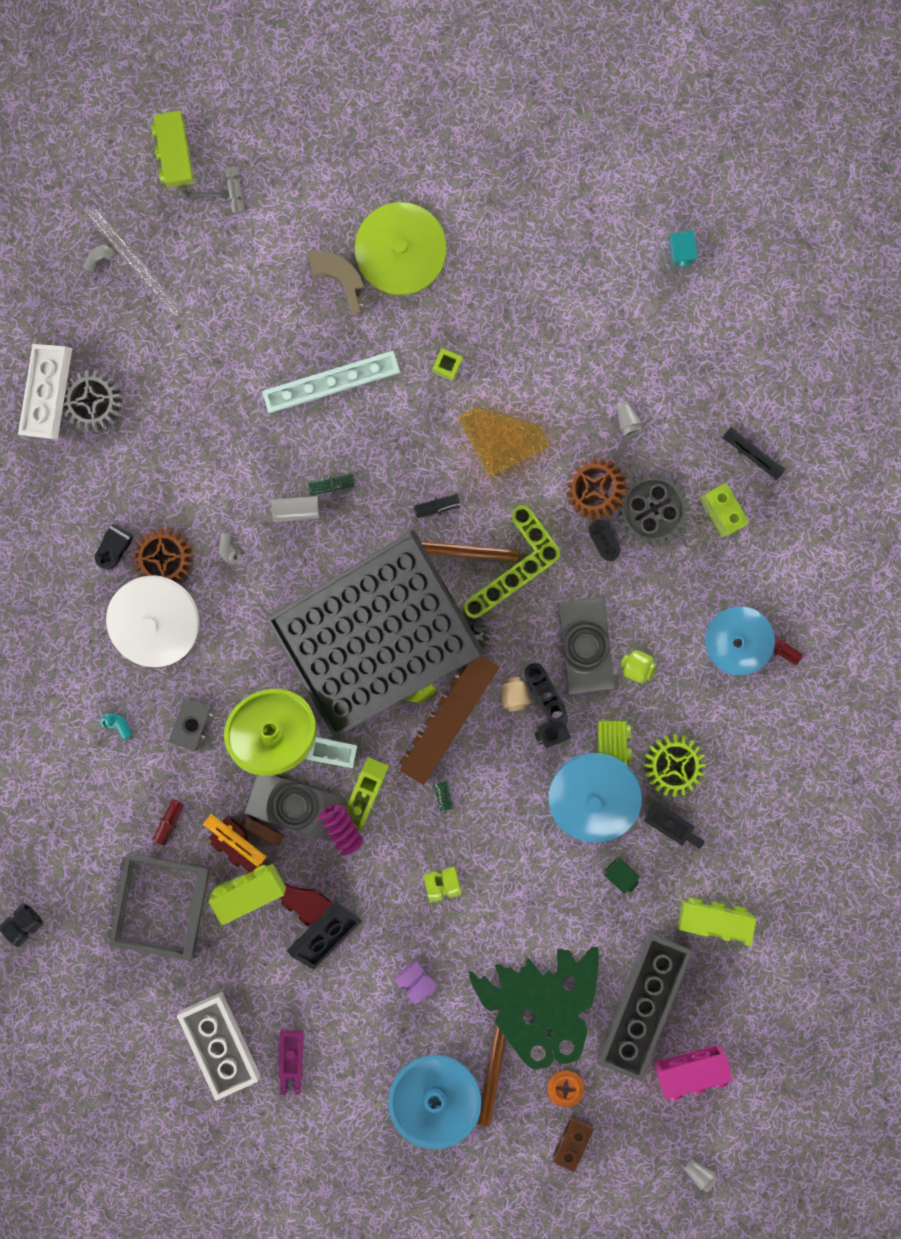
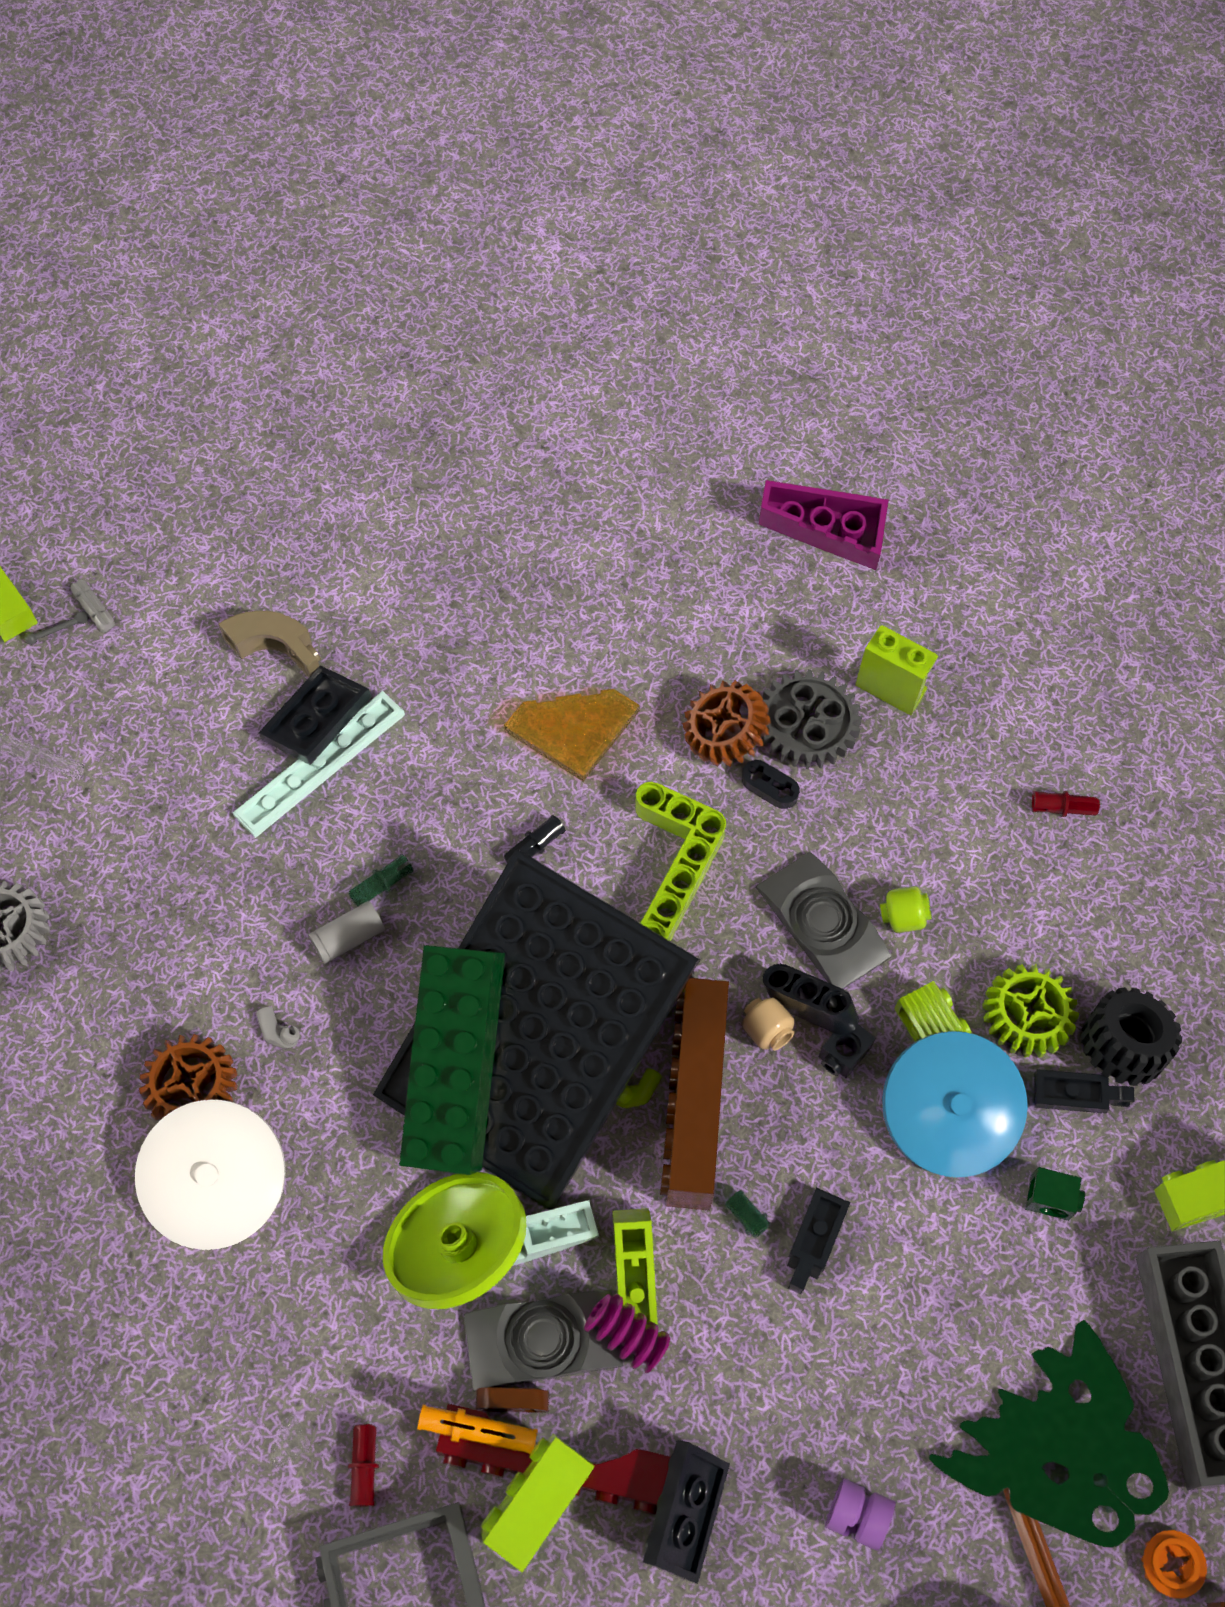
camera: 25 degrees left, 25 degrees down
(114, 542) = (109, 1097): black piece -> none
(116, 722) = (219, 1352): teal arm -> none
(181, 734) = (323, 1274): dark grey brick -> none
(317, 629) = (452, 1059): none -> dark green brick
(342, 349) = (315, 714): none -> black plate
(400, 248) = (335, 580): lime dish -> none
(447, 364) = (459, 670): lime brick -> none
(450, 881) = (830, 1338): lime wheel -> none
(469, 551) = (627, 870): dark orange axle -> none
(474, 829) = (816, 1238): none -> black hinge
(628, 420) = (719, 637): light grey cone -> none
(683, 248) = (672, 434): teal brick -> none
(738, 813) = (1143, 1019): none -> black tyre
(742, 624) = (1008, 839): dark azure dish -> none
(745, 447) = (851, 599): black pin -> none
(748, 372) = (827, 520): none -> magenta wedge

